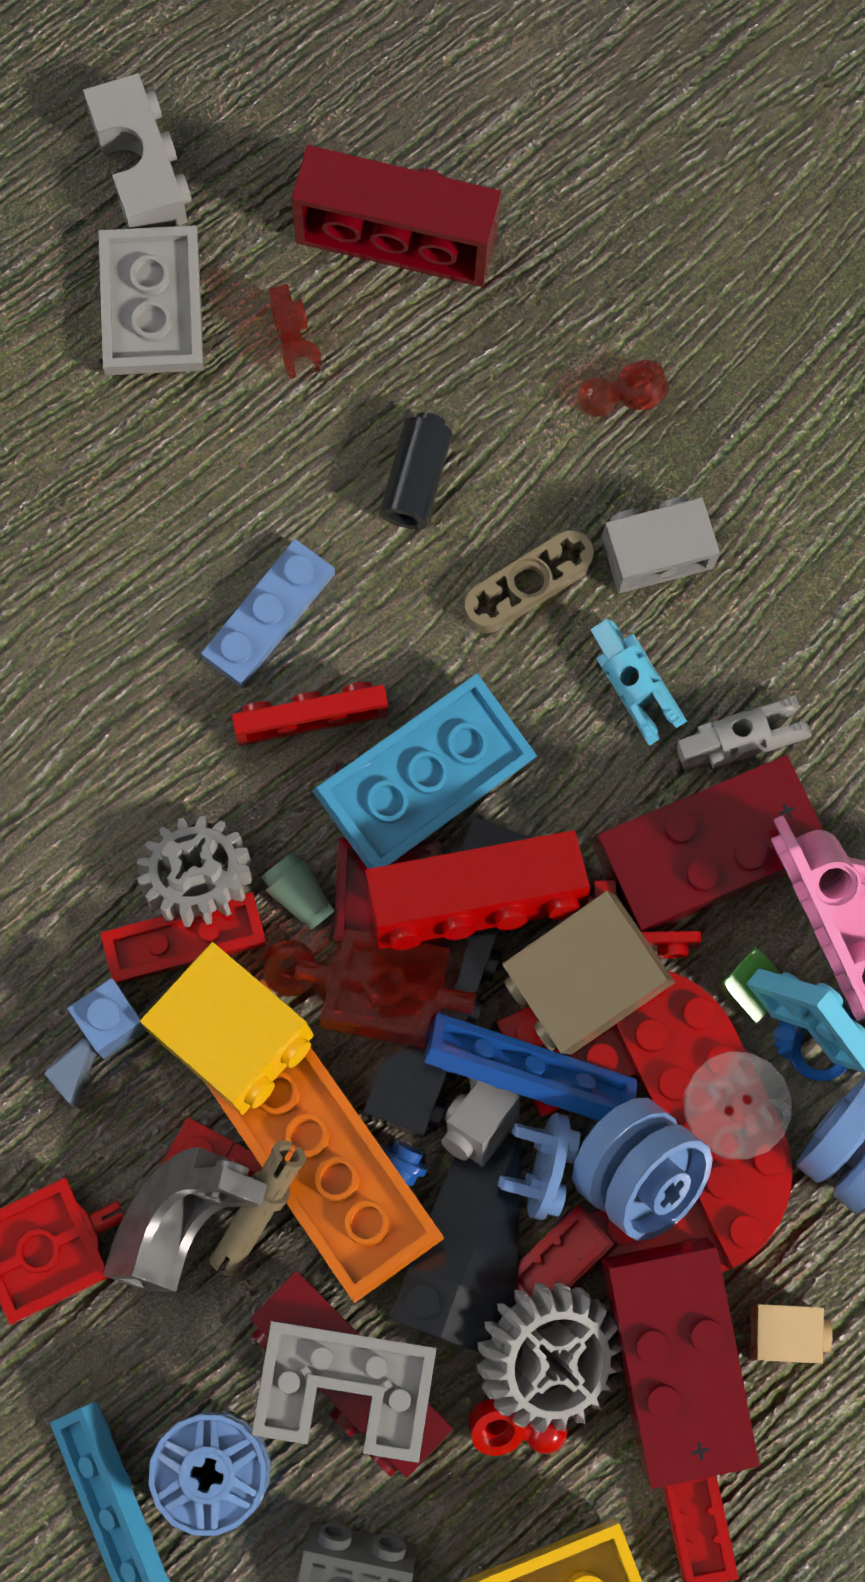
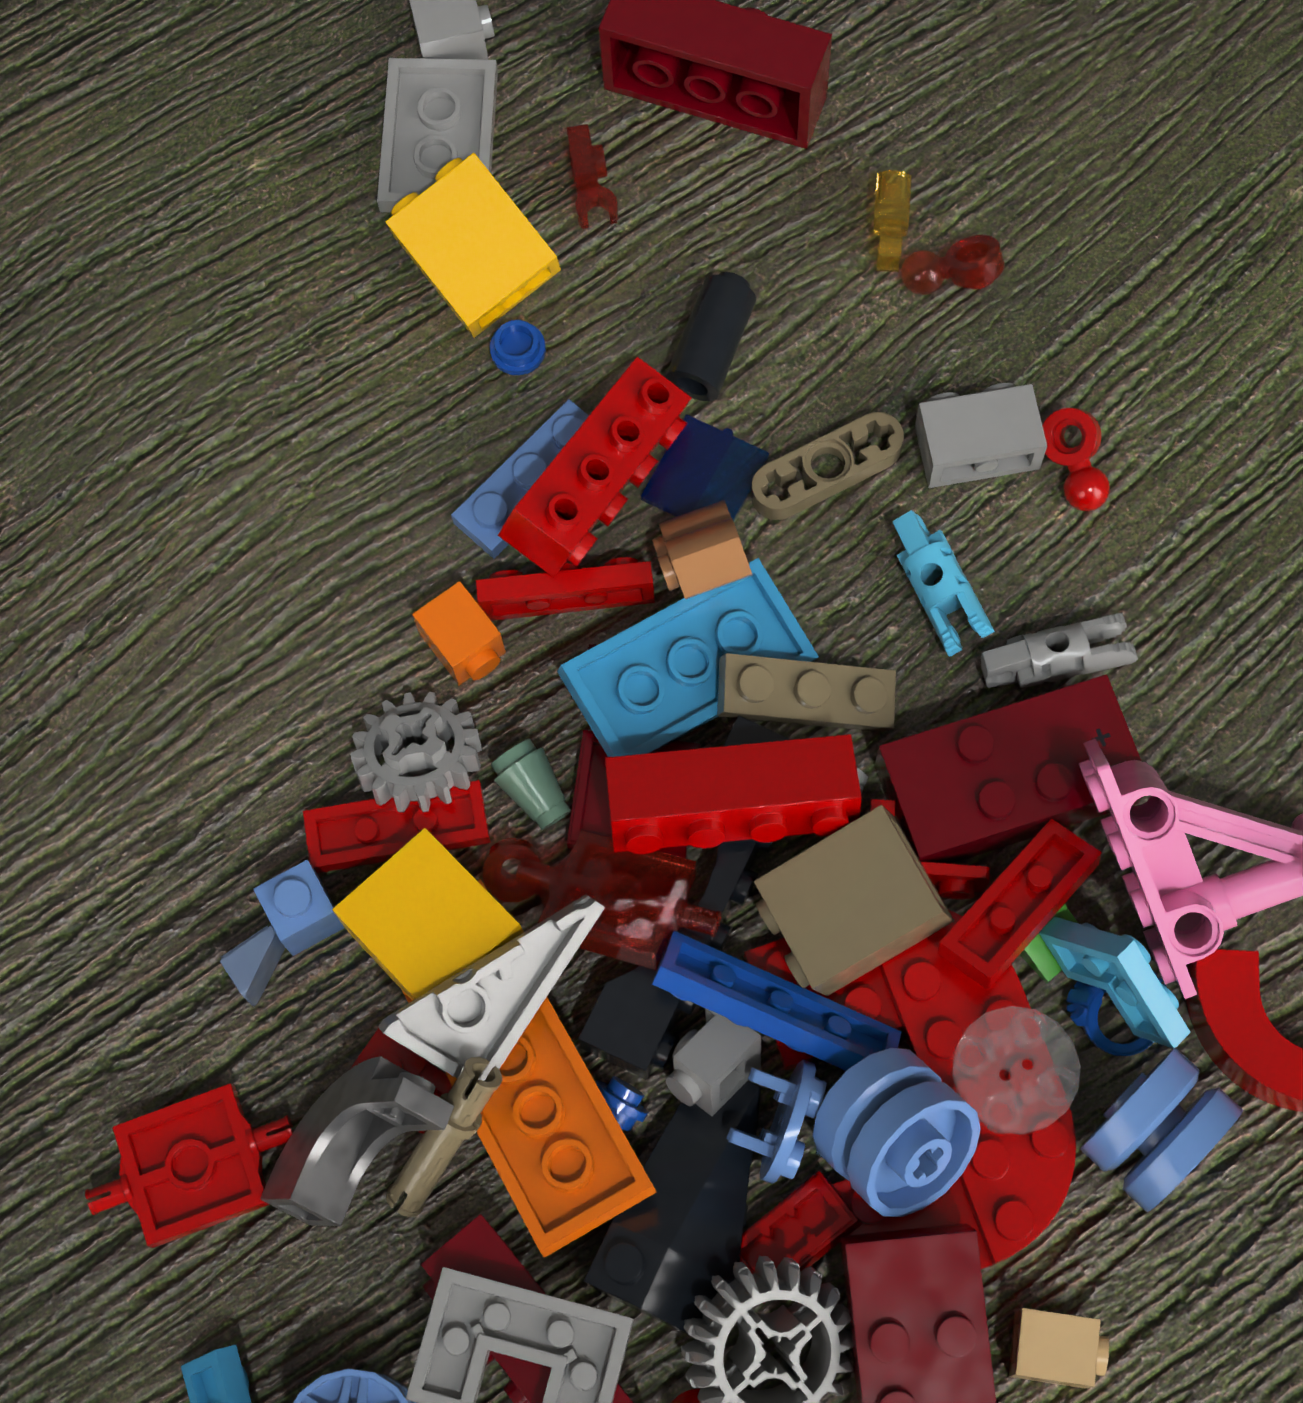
camera: 15 degrees right, 5 degrees down
(194, 402) = (472, 243): none -> yellow brick
(221, 762) = (460, 634): none -> orange brick
(243, 494) = (517, 347): none -> blue plate
(291, 1087) = (495, 998): none -> wing
(327, 605) = (594, 468): none -> red brick
(421, 599) = (704, 469): none -> clear blue piece
(427, 671) = (701, 550): none -> medium nougat brick
(529, 790) = (806, 692): none -> dark tan plate
(564, 348) = (891, 216): none -> clear yellow bar
(729, 962) = (1019, 903): none -> red plate
(754, 582) = (1085, 486): none -> red plate

